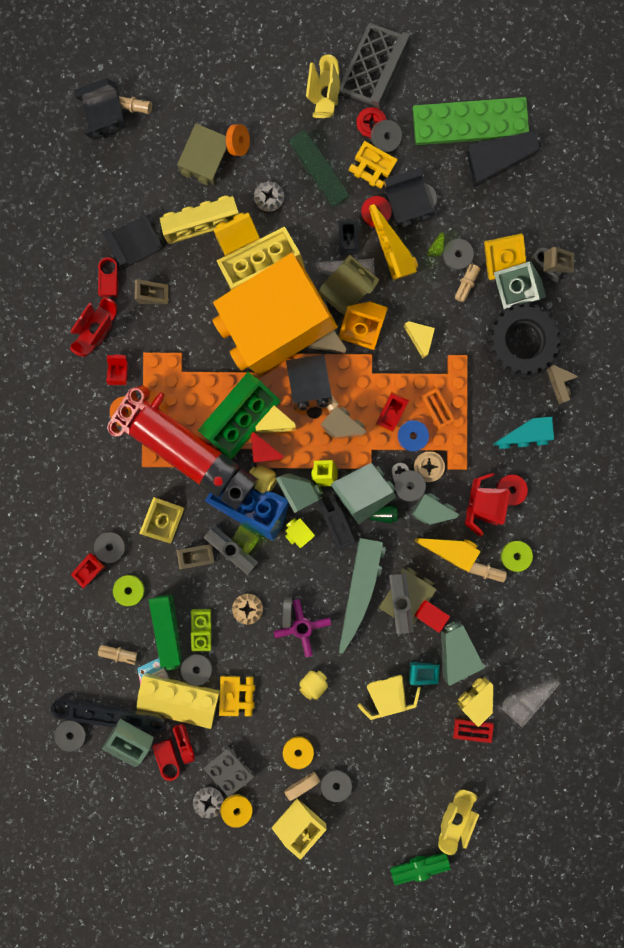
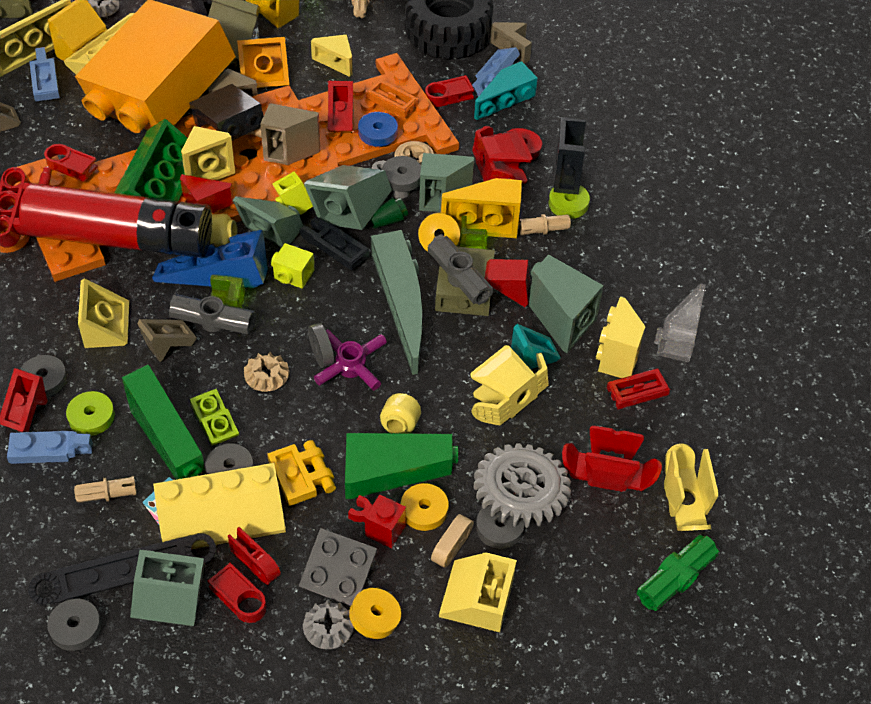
camera: 30 degrees left, 35 degrees down
(94, 604) = (47, 446): none -> medium blue hinge
(188, 375) = (74, 164): none -> red piece
(198, 264) = (44, 76): none -> medium blue hinge
(267, 755) = (382, 520): none -> red brick
(293, 716) = (395, 460): none -> green slope
(368, 789) = (522, 494): none -> light grey gear
(408, 552) = (438, 221): none -> yellow piece
(431, 562) = (472, 237): none -> clear neon green panel
(432, 788) = (607, 470): none -> red piece
(491, 412) = (453, 91): none -> red piece
(522, 545) = (569, 156): none -> black panel
(531, 407) = (501, 59): none -> medium blue hinge

